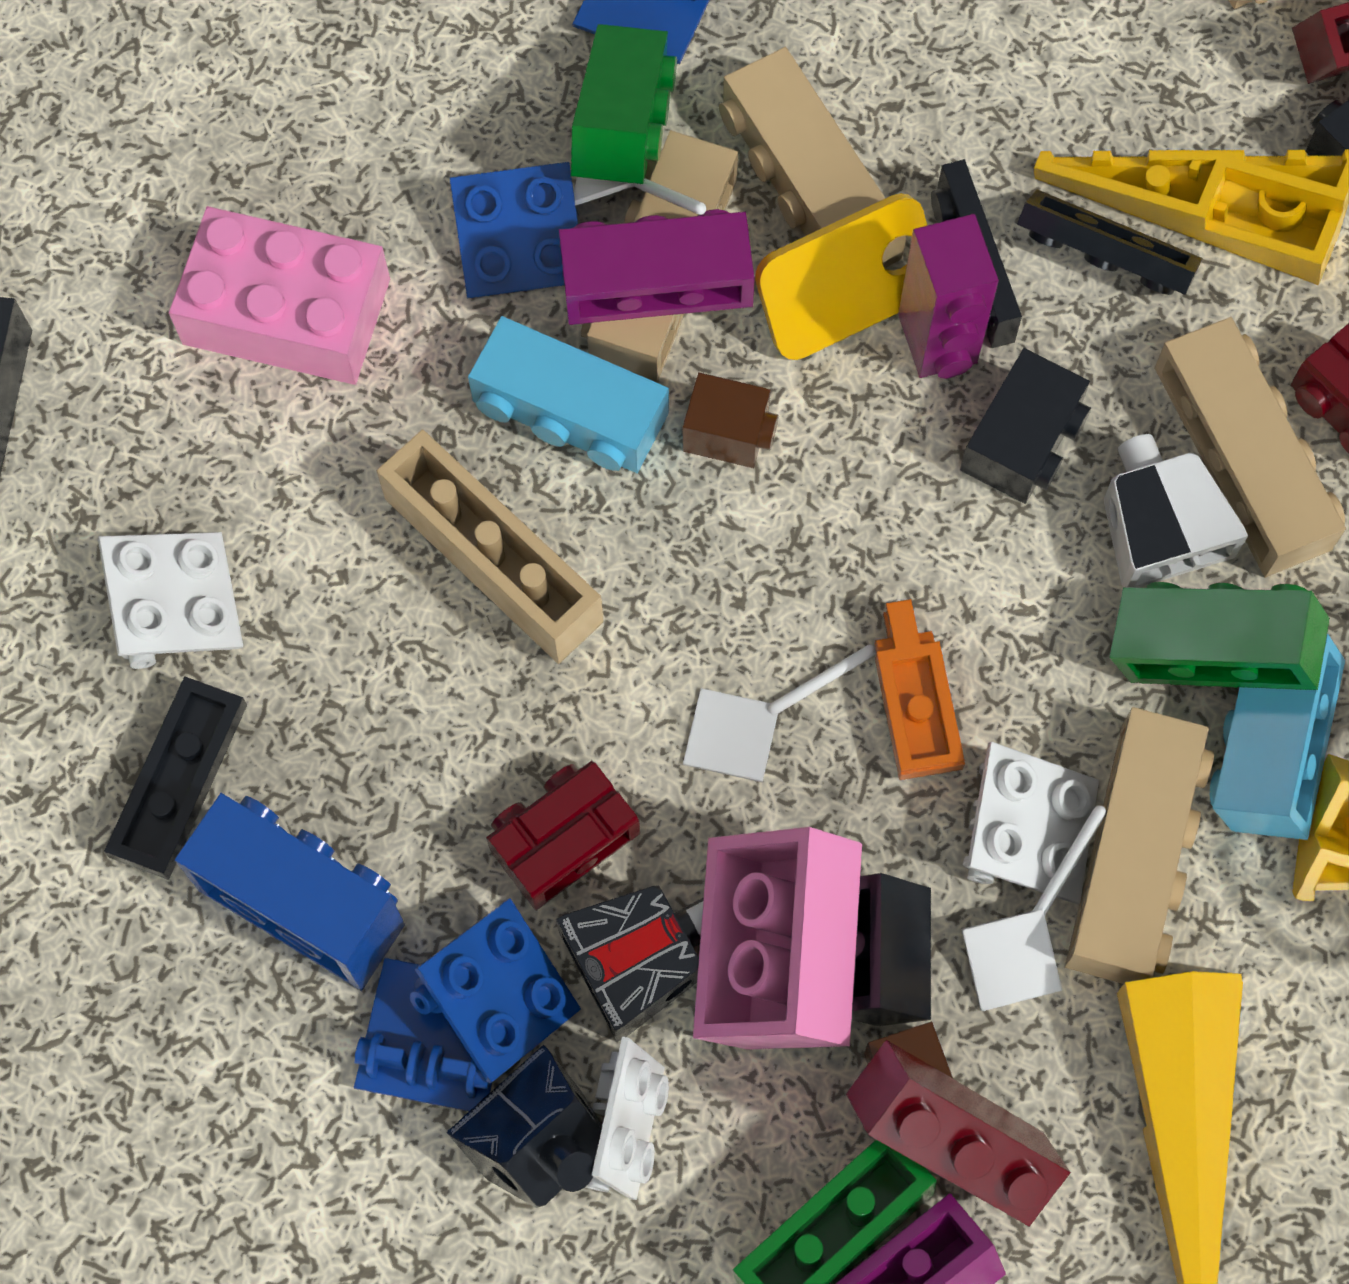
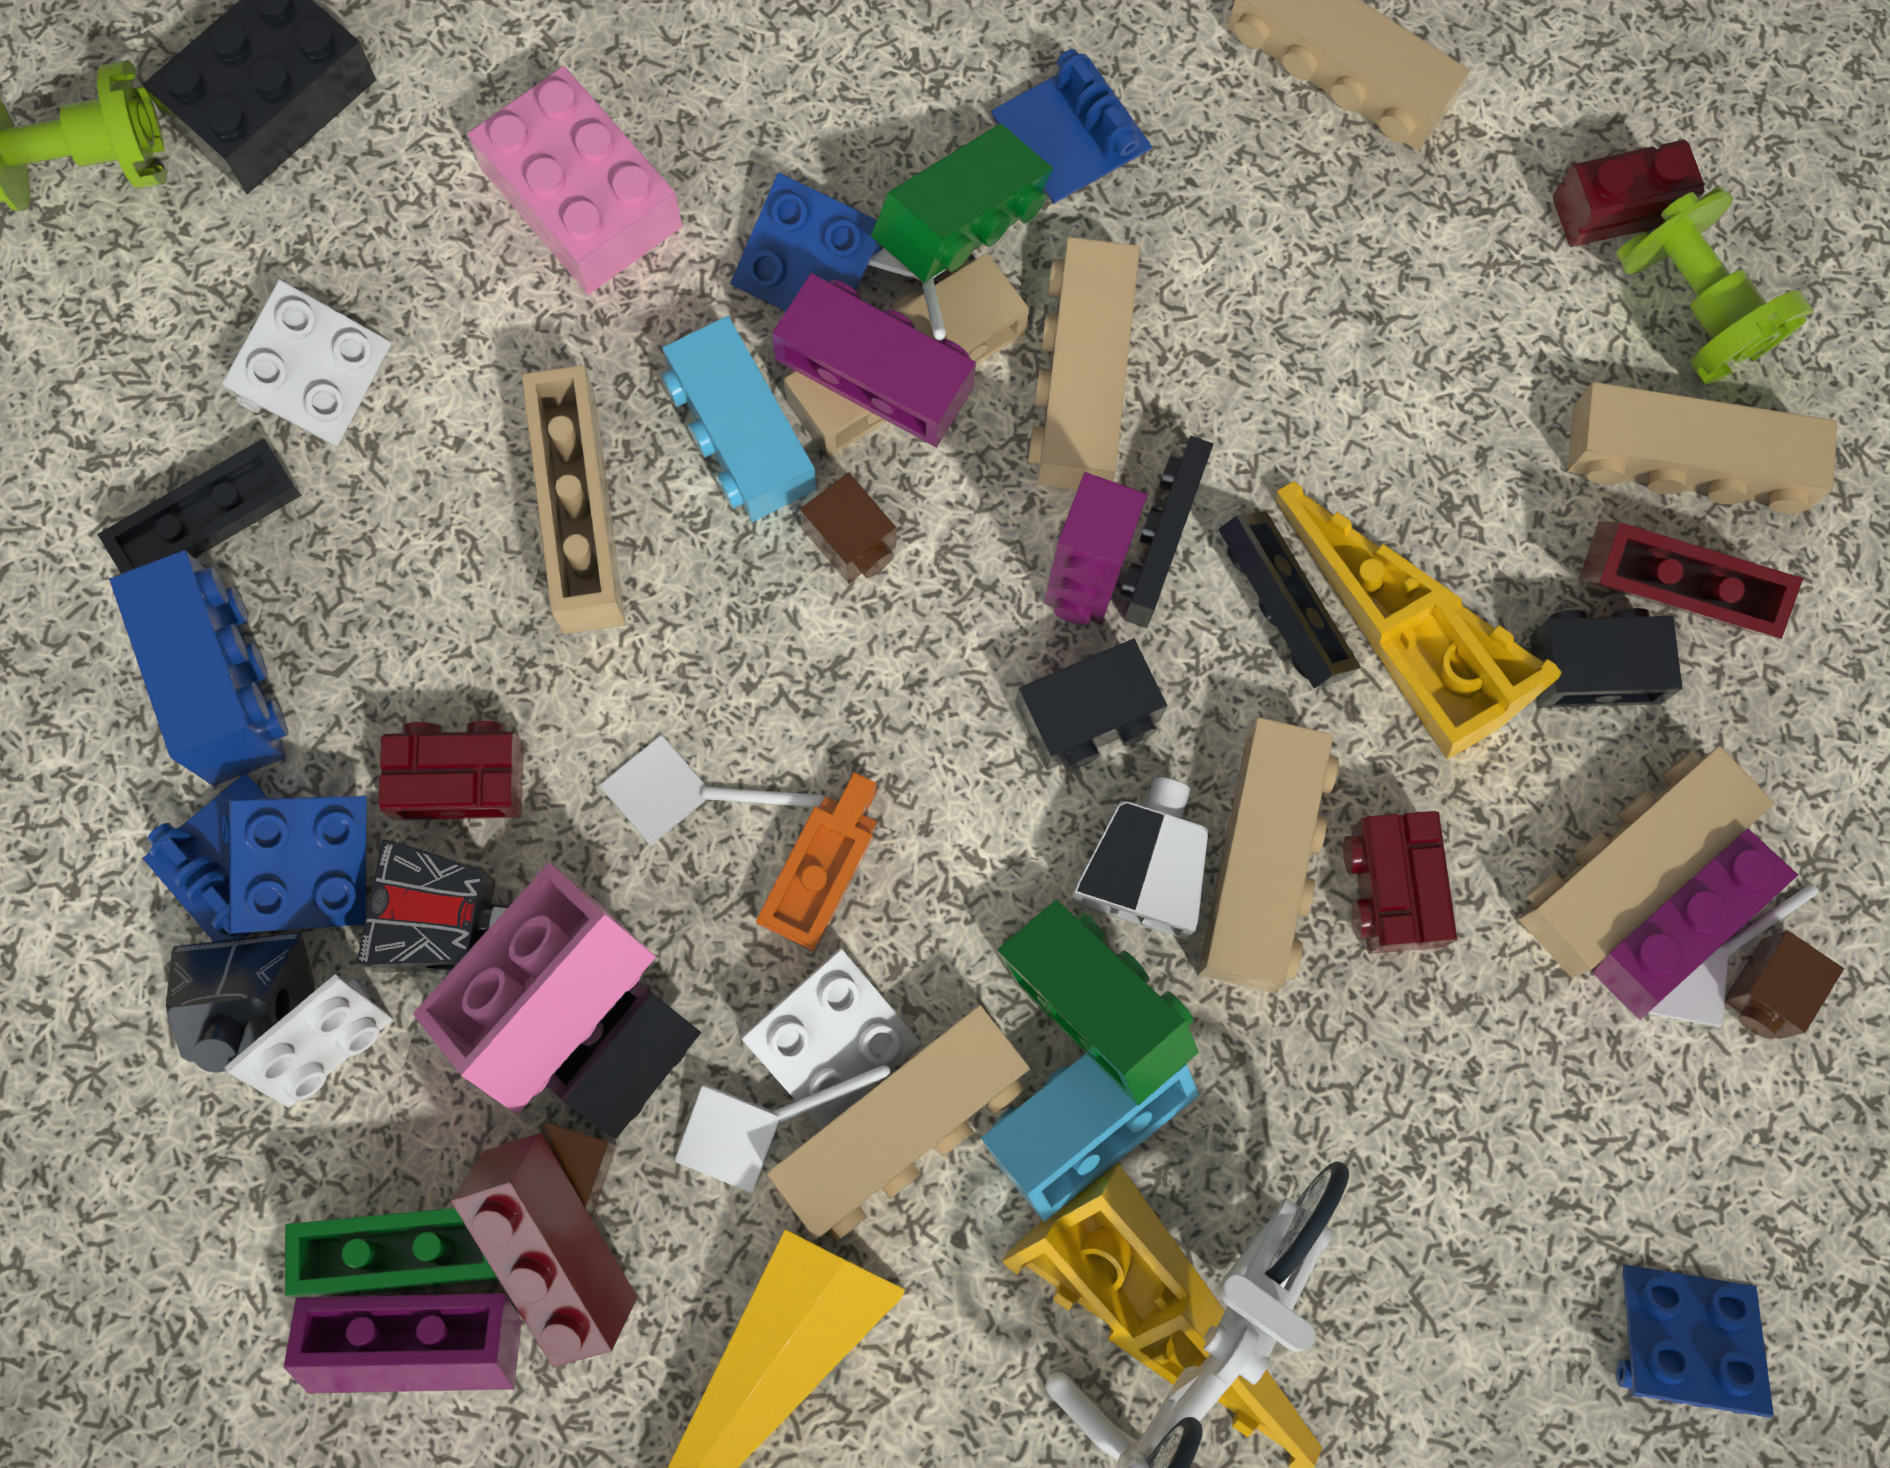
camera: 30 degrees right, 5 degrees up
(836, 278) = (1024, 469): yellow piece -> none

